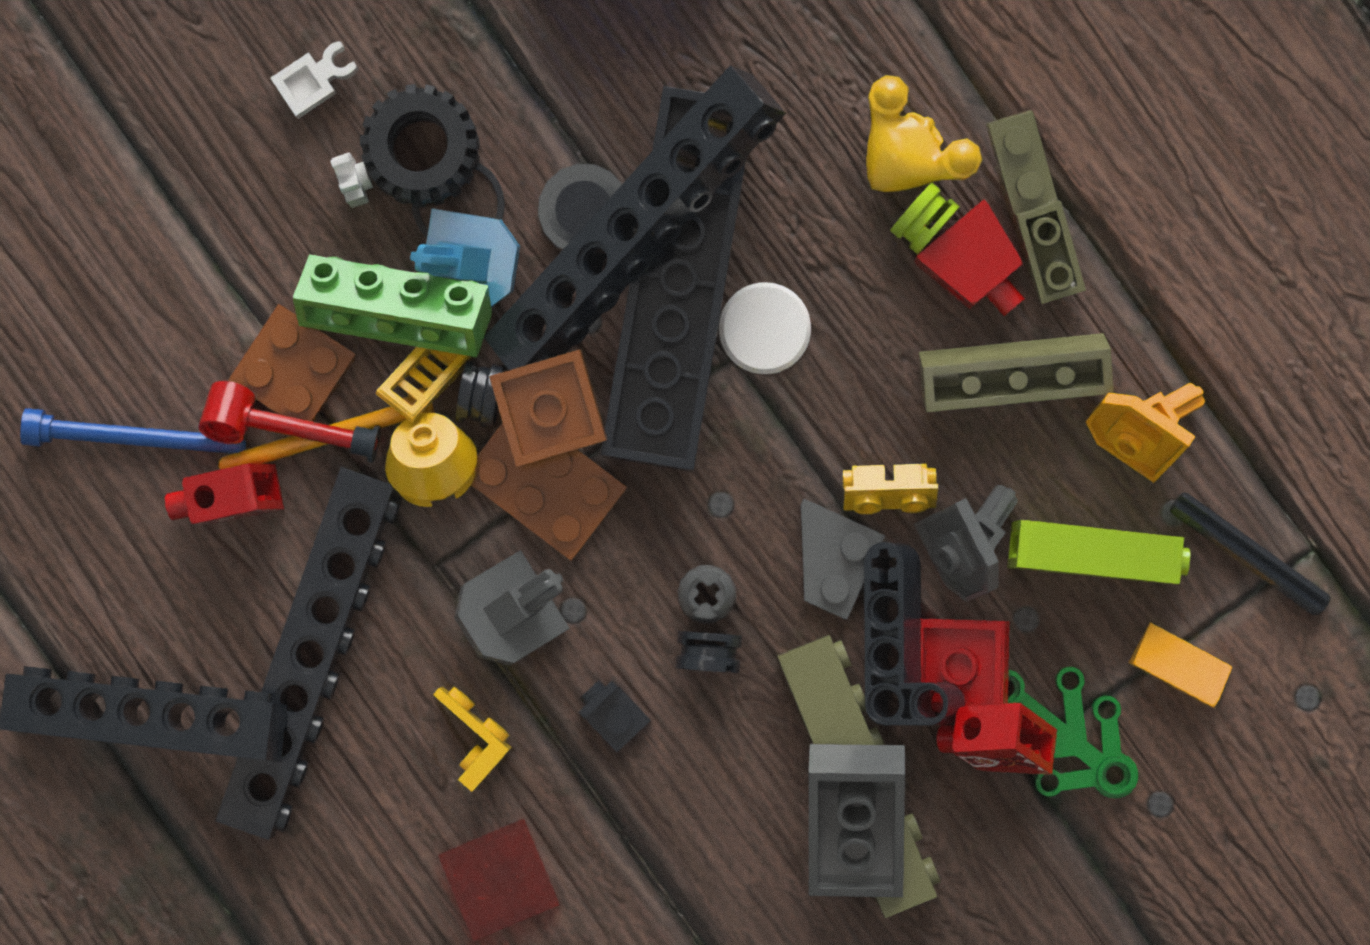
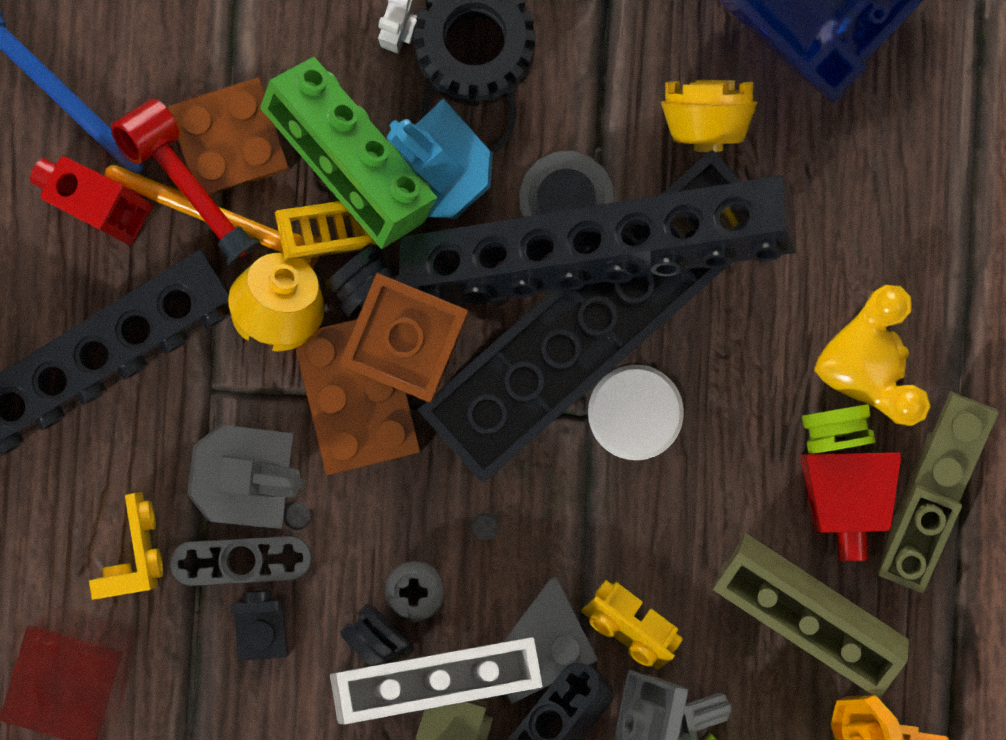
camera: 35 degrees right, 0 degrees up
(525, 691) = (206, 575): none -> dark grey beam
(639, 60) = (708, 112): none -> yellow cone
(774, 641) = (435, 680): none -> white brick

